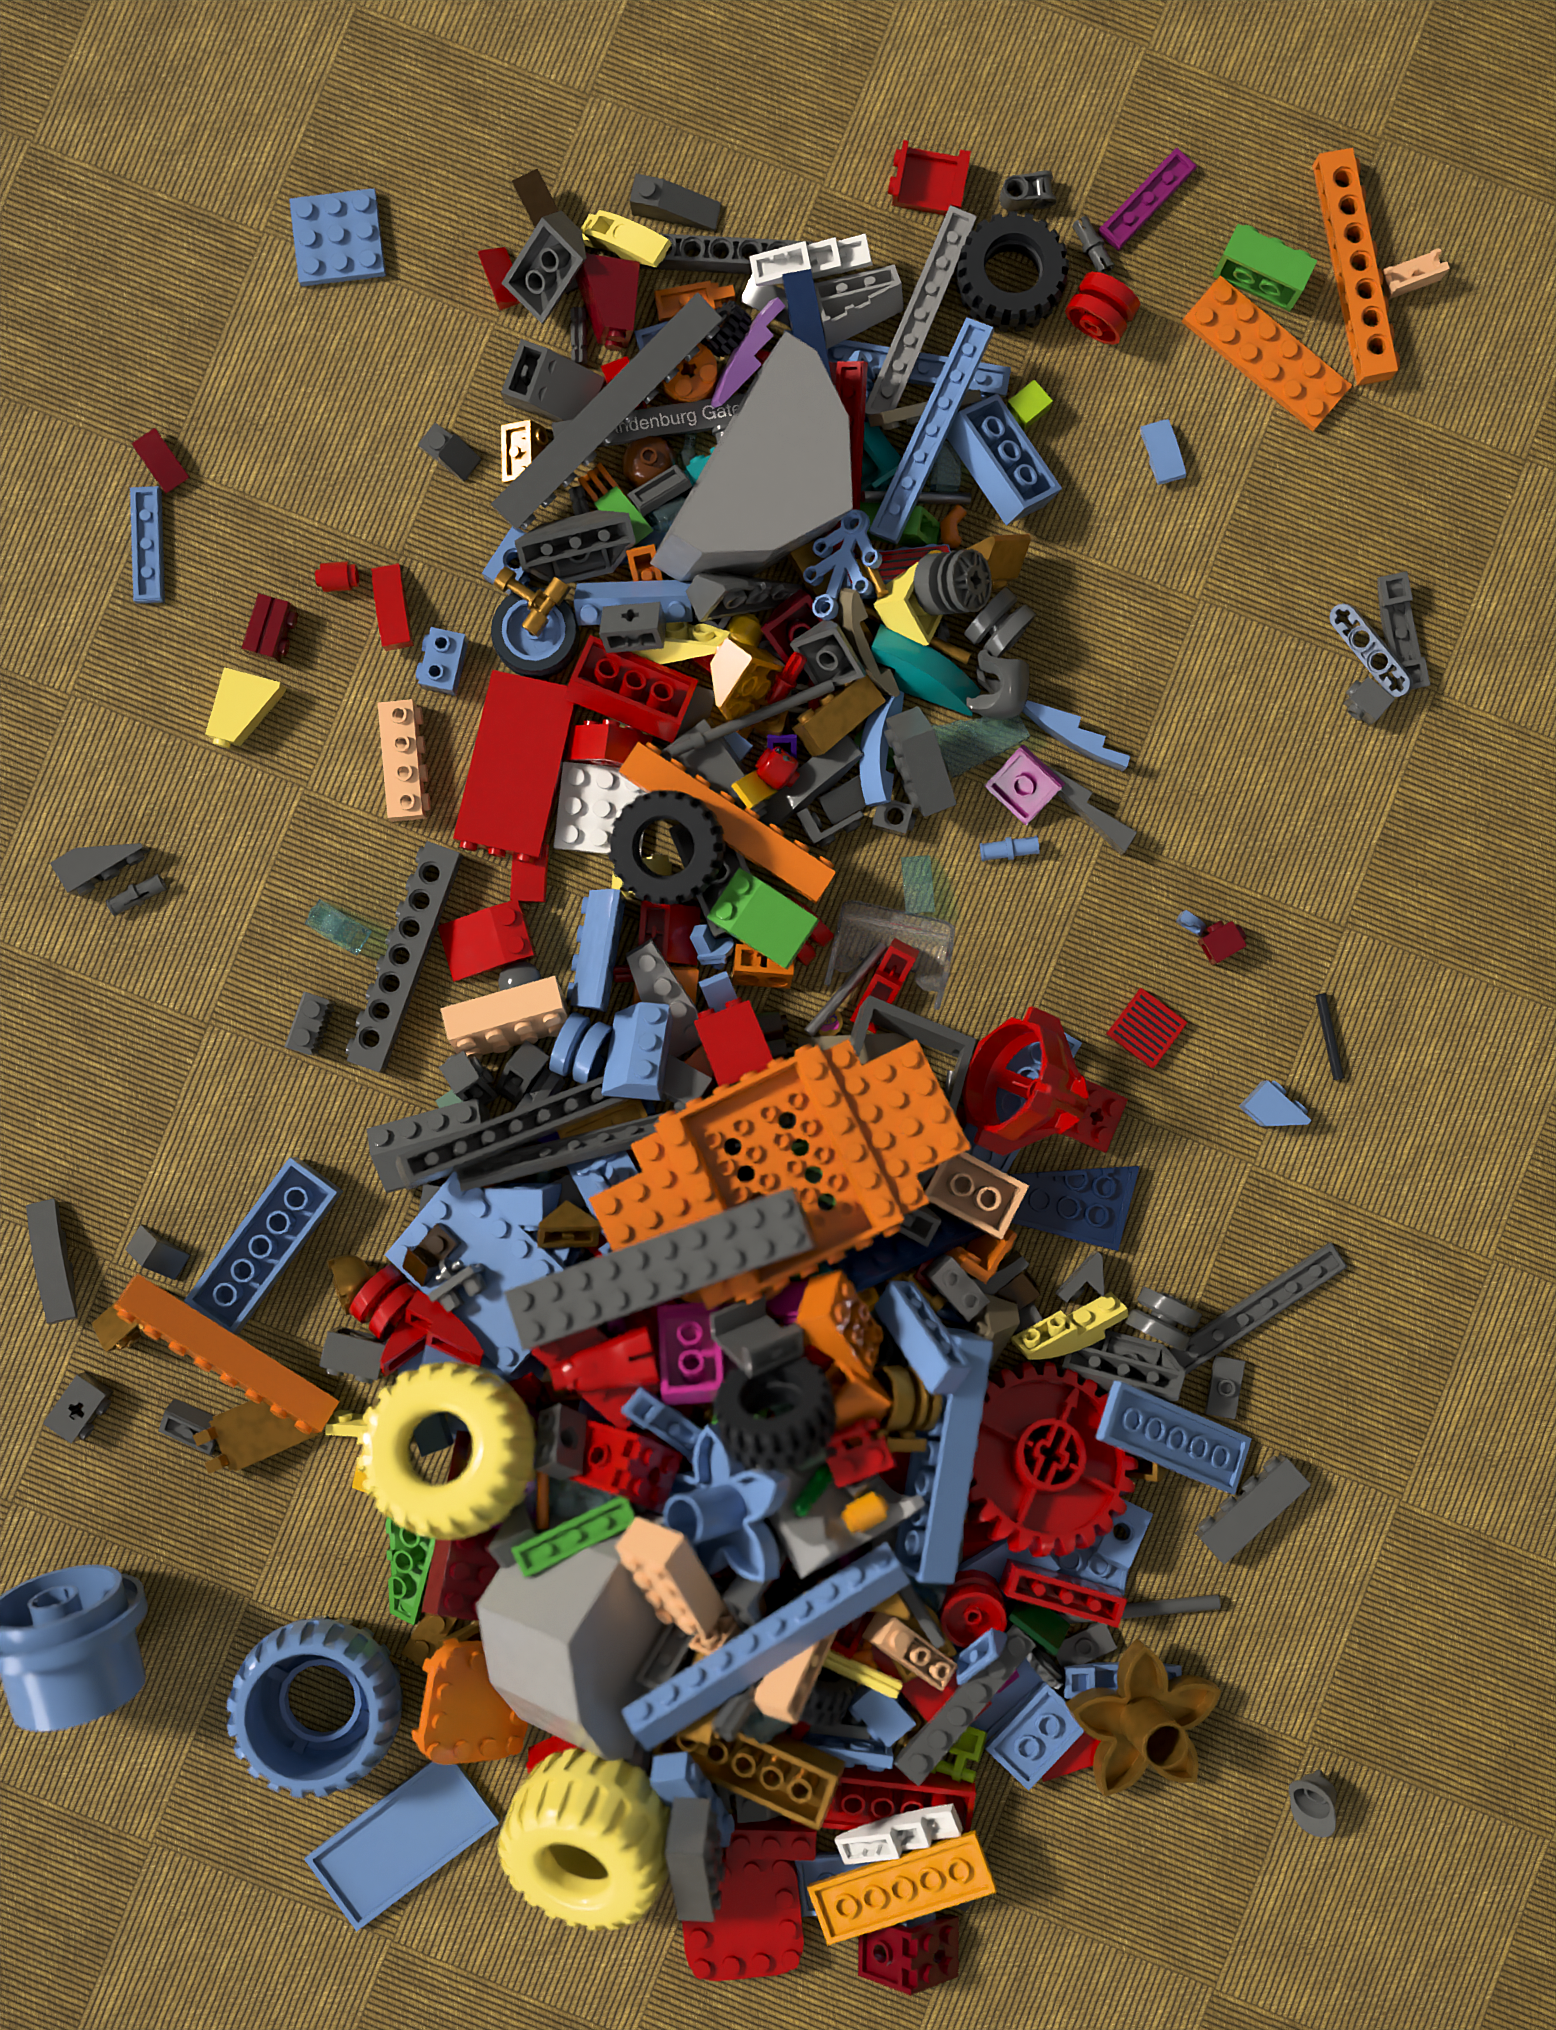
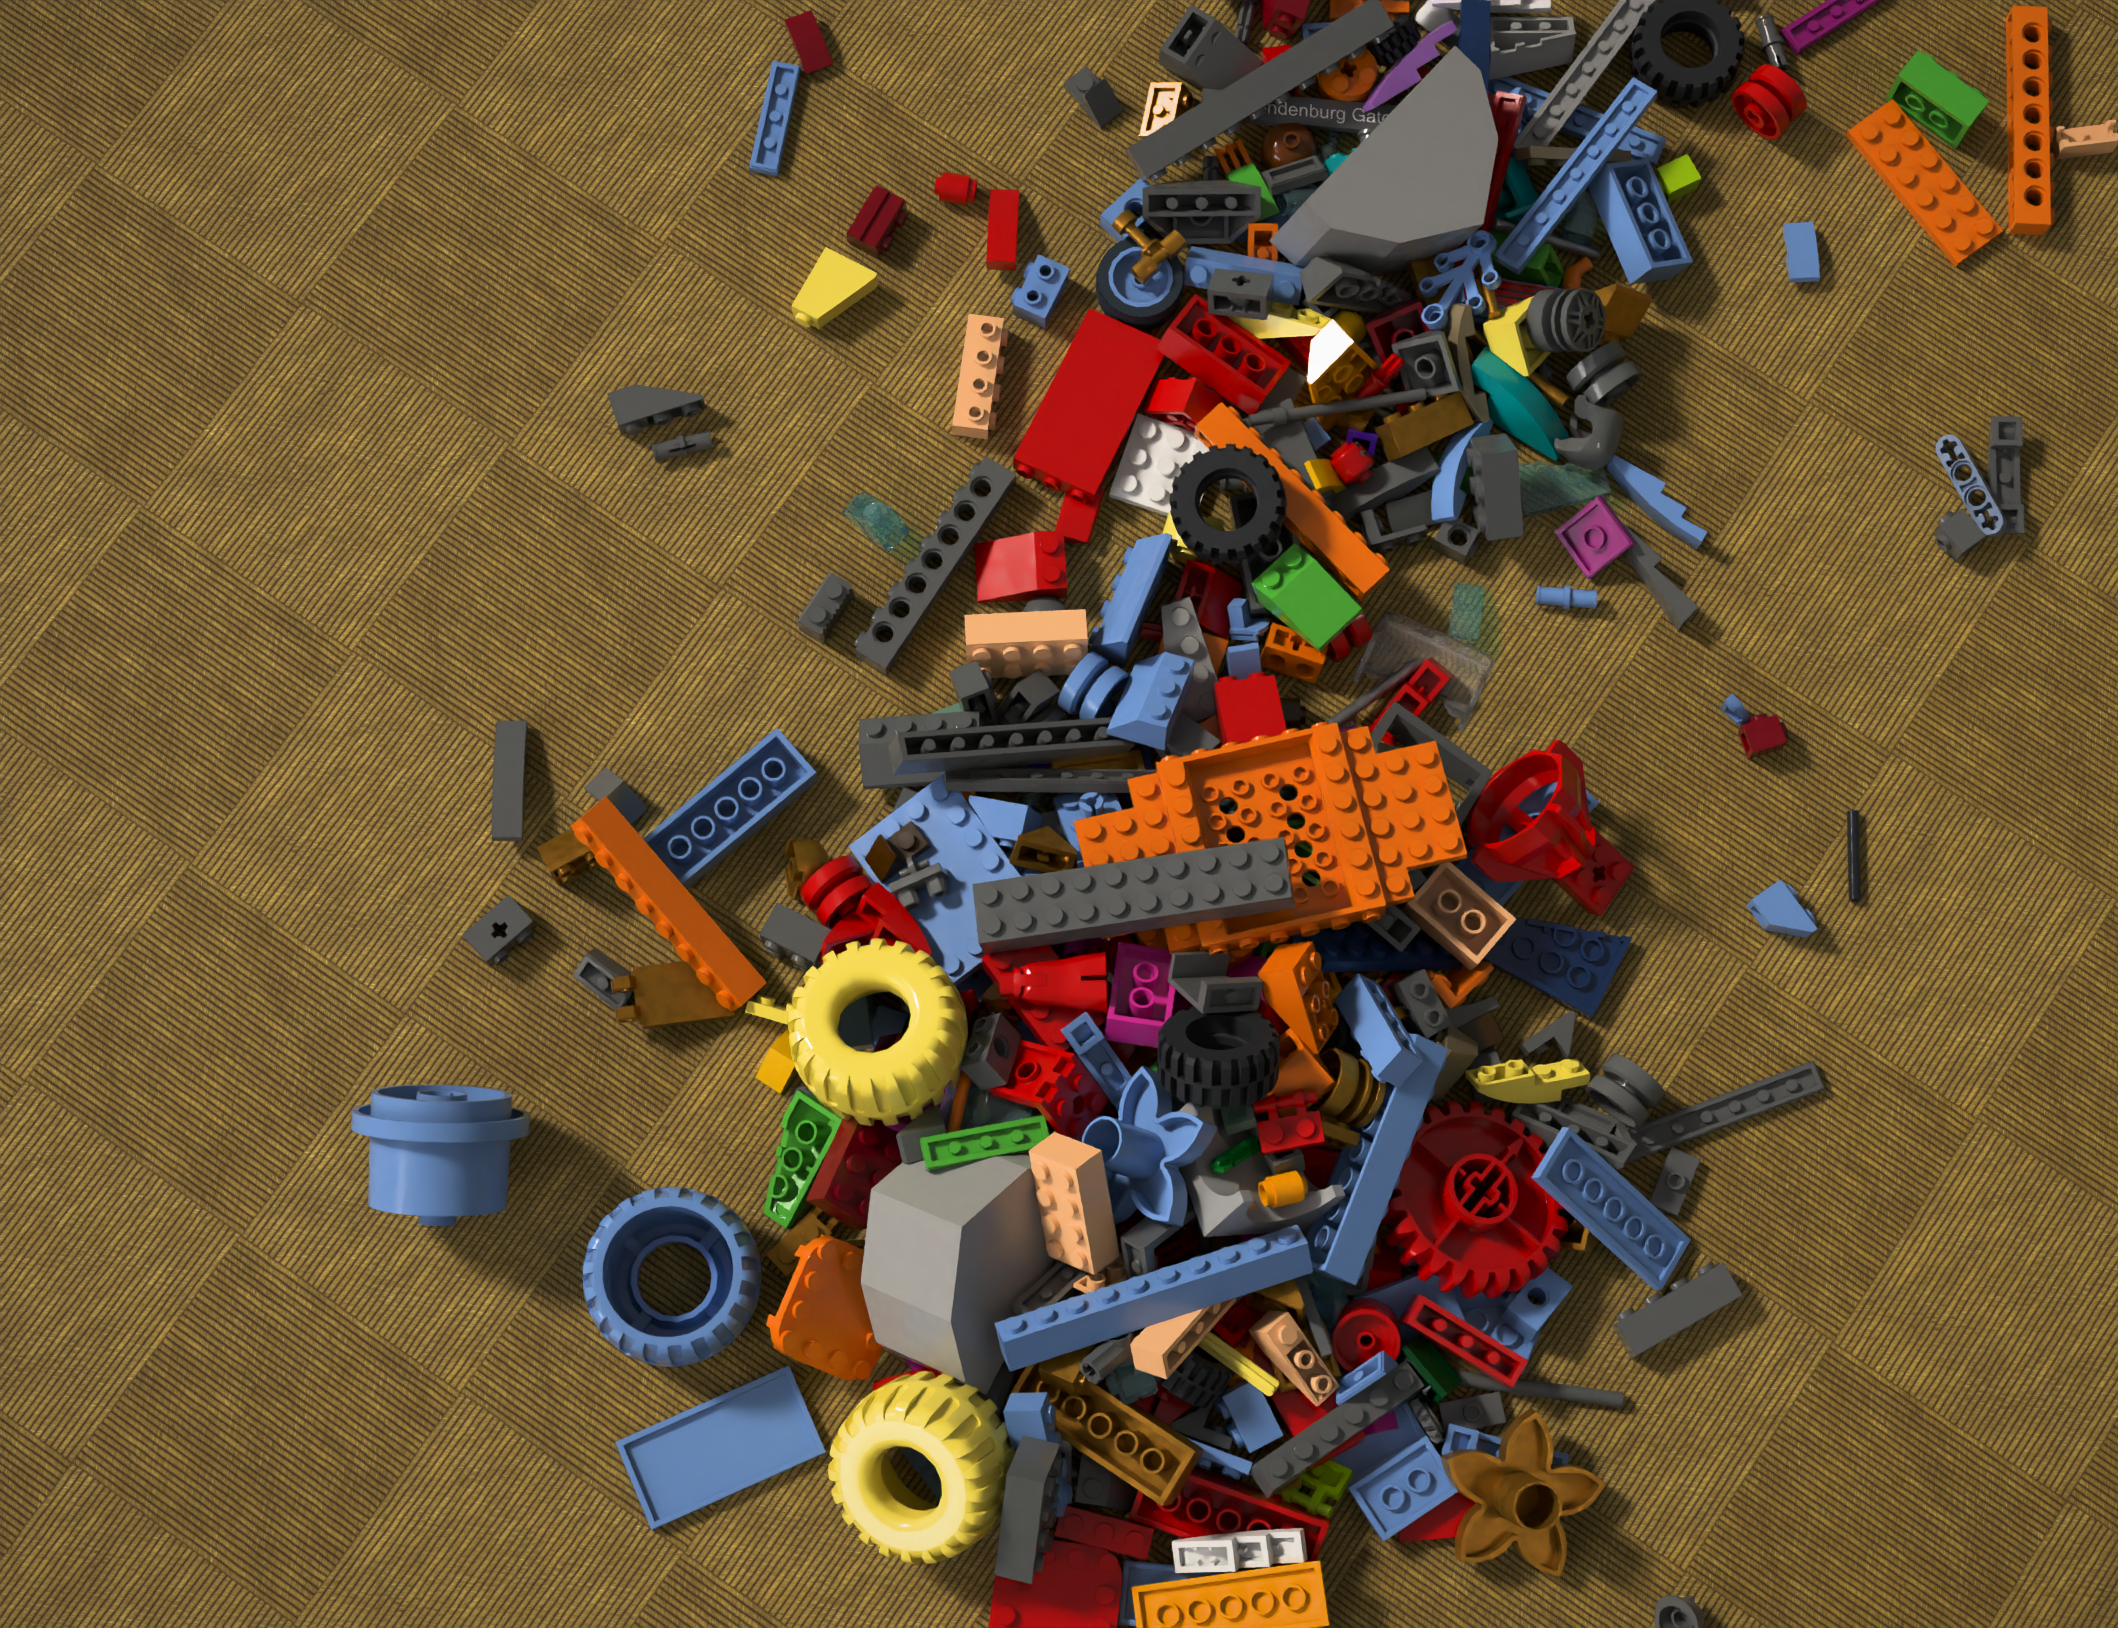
camera: 10 degrees right, 10 degrees down
(1146, 1028) = (1667, 805): red tile -> none

